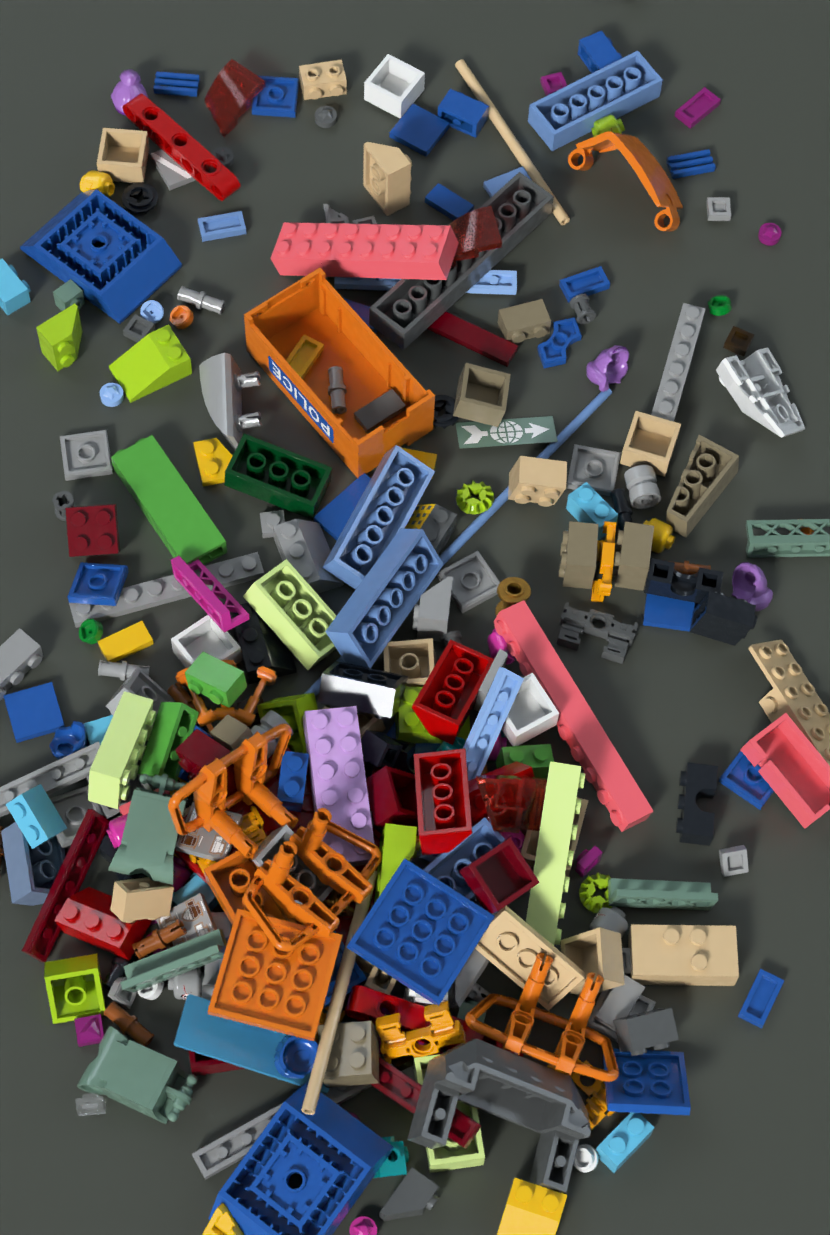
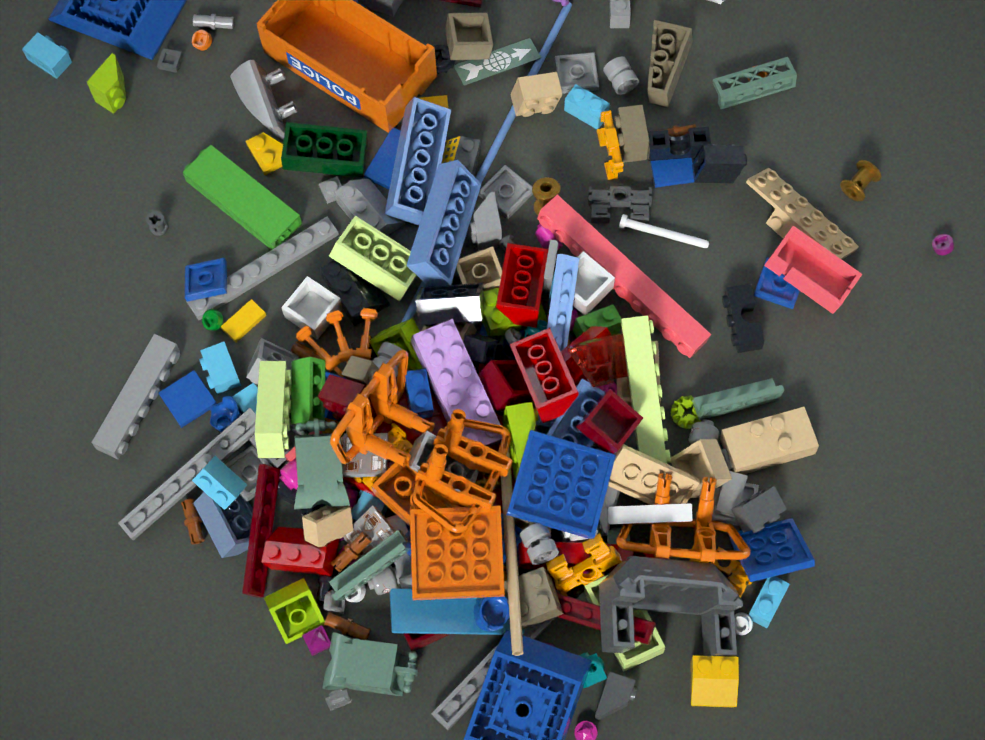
camera: 10 degrees left, 5 degrees up
(68, 295) = (102, 48): sand green plate -> none
(81, 688) = (220, 368): none -> medium azure brick
(86, 455) = (160, 176): light grey tile -> none
(92, 530) = (187, 236): dark red piece -> none
(111, 394) = (165, 120): light blue tile -> none
(120, 670) = (248, 344): light grey pin -> none
(151, 364) = (190, 86): lime slope -> none
(152, 311) = (176, 42): light blue tile -> none
(205, 597) = (300, 266): dark pink fence -> none
(215, 679) = (330, 330): bright green brick -> none
(304, 355) = (314, 42): yellow tile -> none
(337, 390) = (349, 65): light grey pin -> none
(375, 993) = (539, 543): none -> light grey wheel
(379, 411) = (390, 73): dark grey tile -> none
(423, 745) = (513, 335): none -> dark grey tile
(472, 505) = (489, 129): lime gear -> none
(515, 996) = (649, 513): none -> white sticker
(578, 555) = (588, 145): dark tan piece -> none
(588, 860) = (670, 389): magenta plate -> none
(596, 655) = (662, 232): none -> white bar
(621, 507) = (608, 95): black pin -> none
(650, 442) = (616, 37): tan piece -> none
(661, 536) = (650, 111): yellow head -> none
(733, 860) = (785, 355): light grey plate -> none
(751, 585) = (732, 130): medium lavender hair -> none
(760, 998) = (839, 458): blue tile -> none

